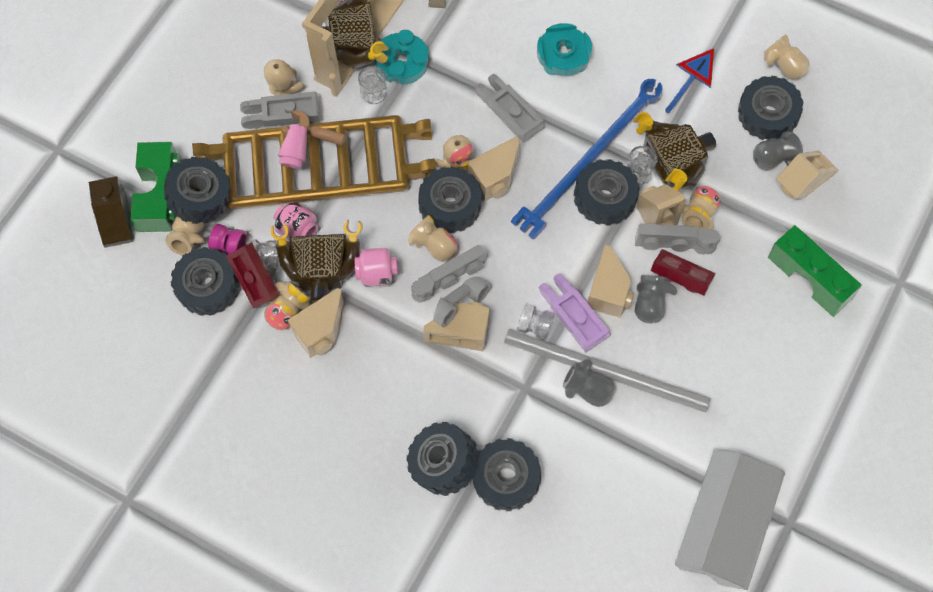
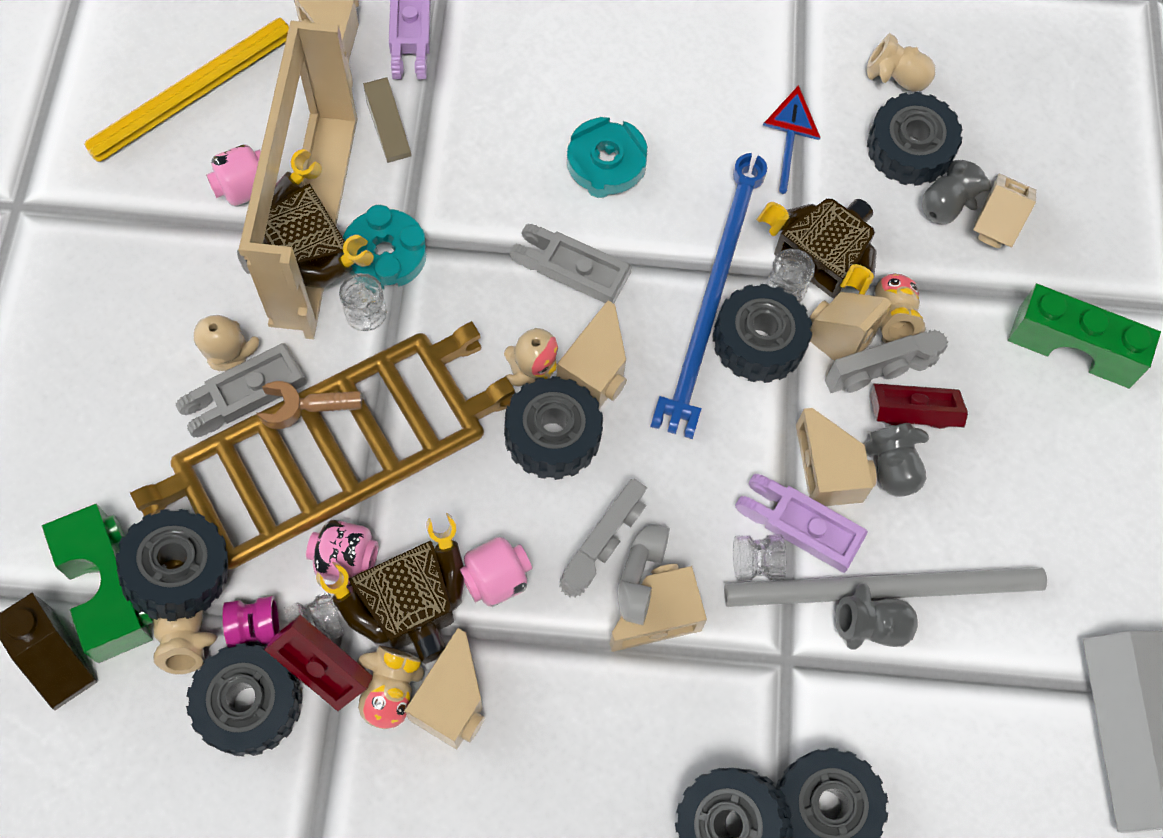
camera: 30 degrees left, 0 degrees up
(294, 147) = (294, 440): bright pink cone -> none
(436, 240) = (563, 495): tan animal -> none

